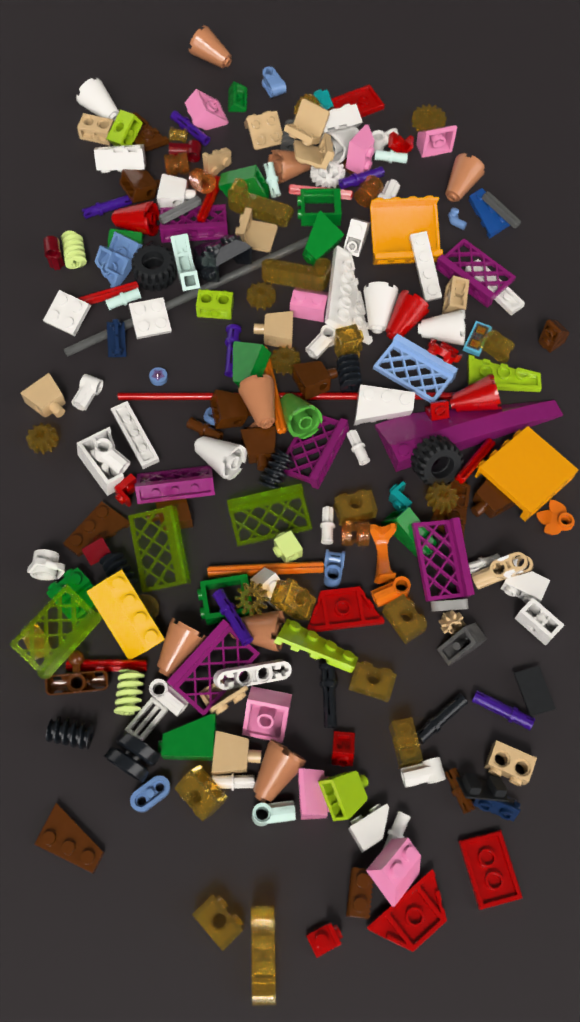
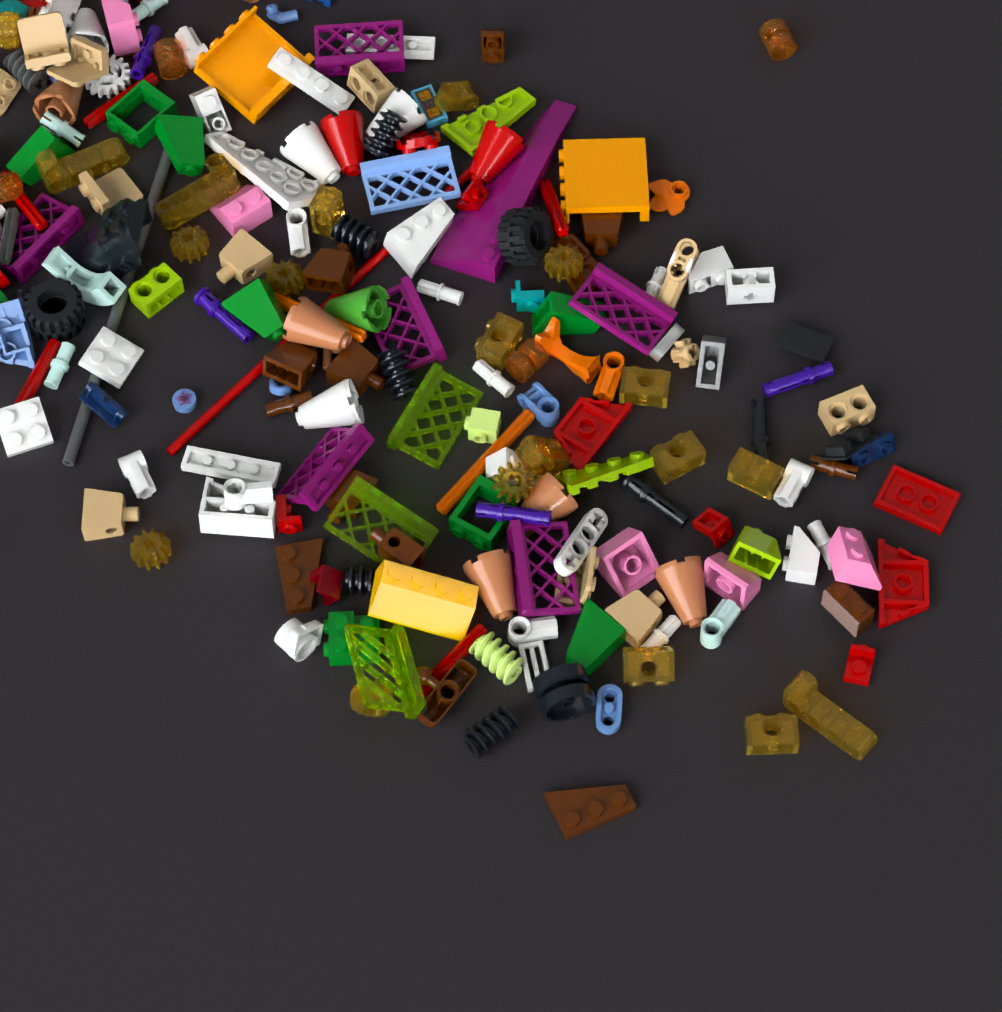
camera: 45 degrees left, 5 degrees down
(147, 572) = (398, 547): none -> reddish brown torso
(427, 329) = (384, 133): none -> black piece

